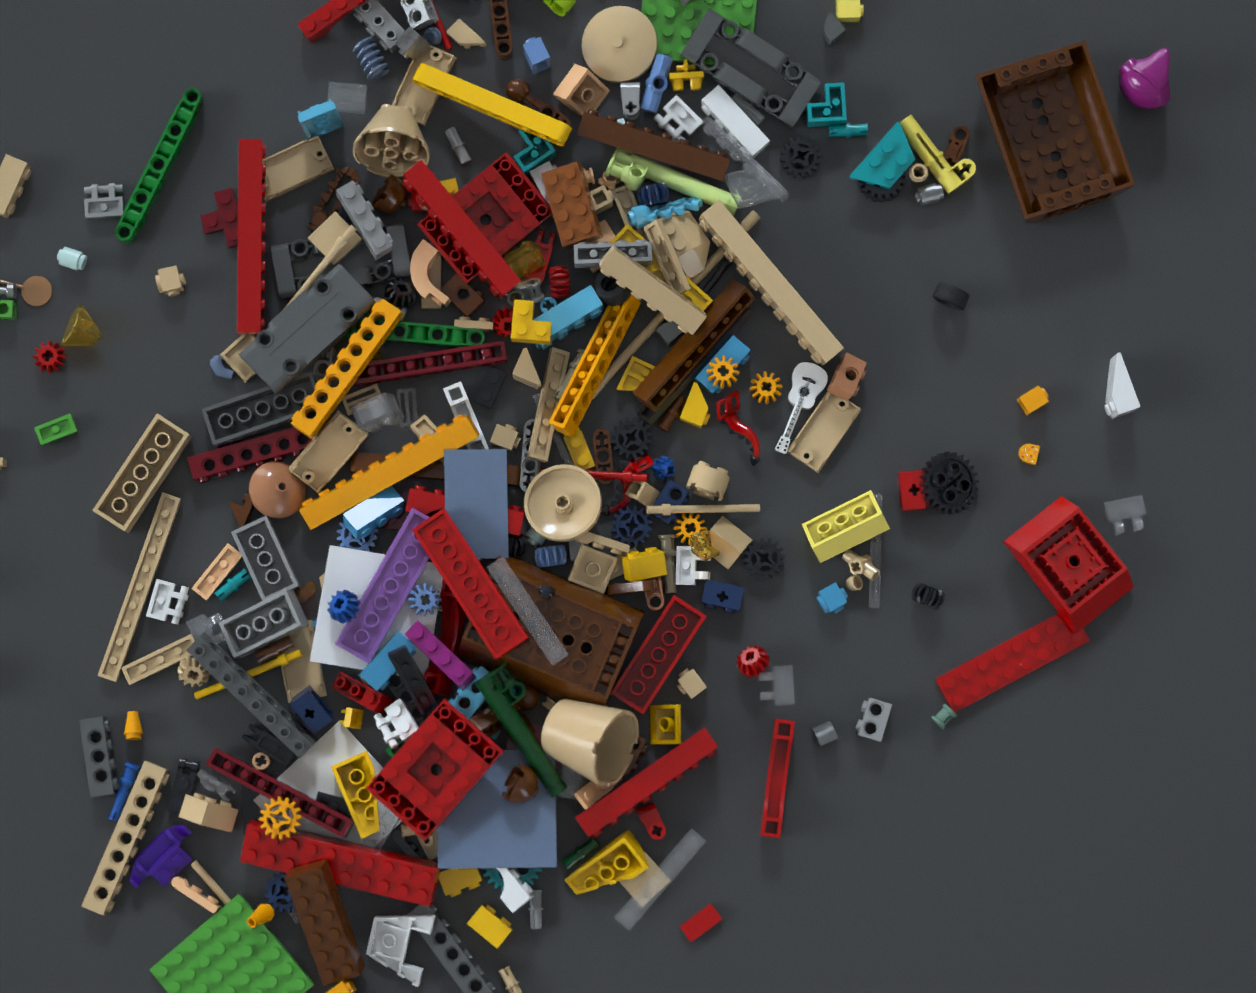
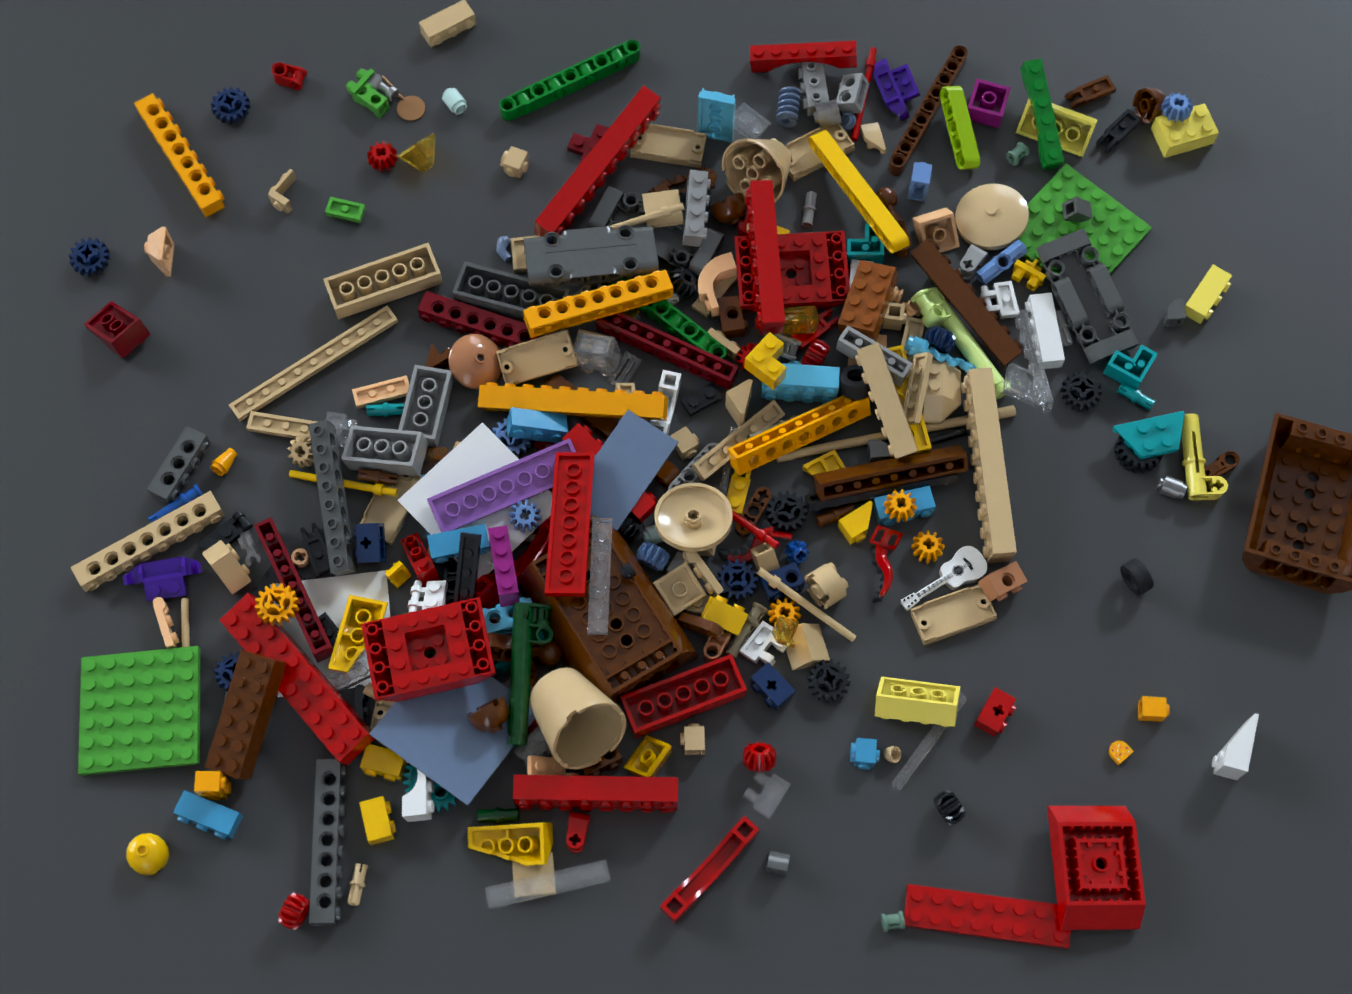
camera: 35 degrees right, 15 degrees down
(104, 207) = (507, 82): light grey plate -> none
(161, 600) = (323, 383): white plate -> none
(263, 914) = (201, 675): light orange cone -> none
(344, 606) = (456, 473): blue gear -> none
(390, 942) = (286, 773): white wing -> none
(536, 910) = (425, 835): light grey axle -> none
(700, 922) = (554, 948): red tile -> none
(860, 564) = (908, 741): tan axle -> none
(878, 721) = (832, 883): light grey brick -> none
(918, 169) = (1173, 463): tan cone -> none
(940, 467) = (1033, 707): black gear -> none
(1125, 508) = (1175, 855): clear plate -> none

